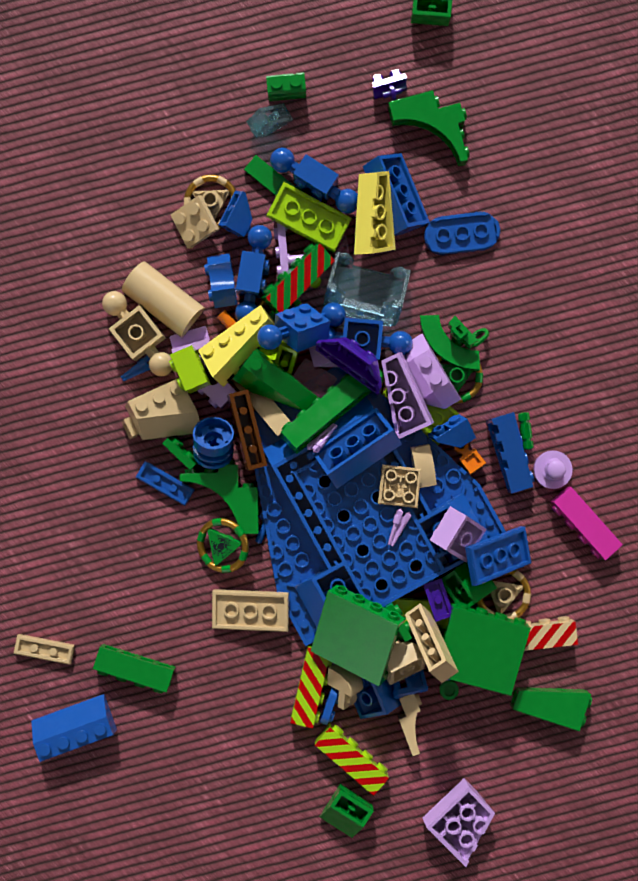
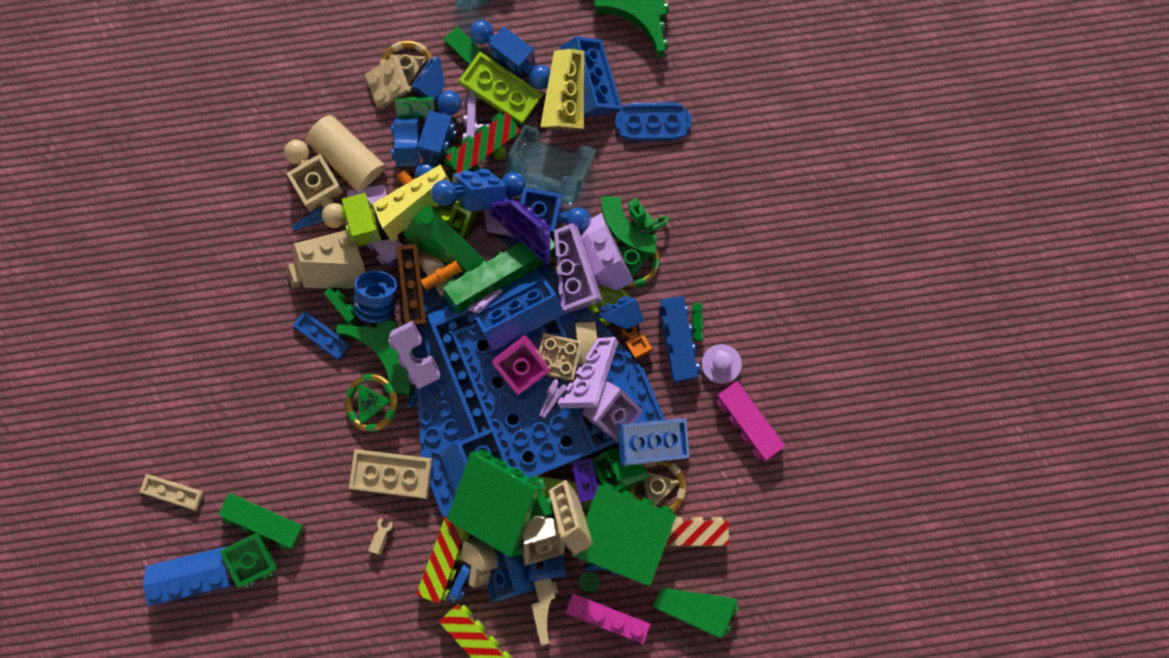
camera: 10 degrees right, 10 degrees down
(128, 708) = (248, 561): none -> green plate
(225, 245) = (414, 106): none -> green plate
(248, 671) = (380, 537): none -> tan bar
(267, 511) = (420, 370): none -> lavender arch
(275, 417) = (441, 275): none -> orange pin
(365, 499) = (521, 364): none -> dark pink slope
(434, 504) = (591, 376): none -> lavender wing
(471, 723) = (608, 618): none -> dark pink brick

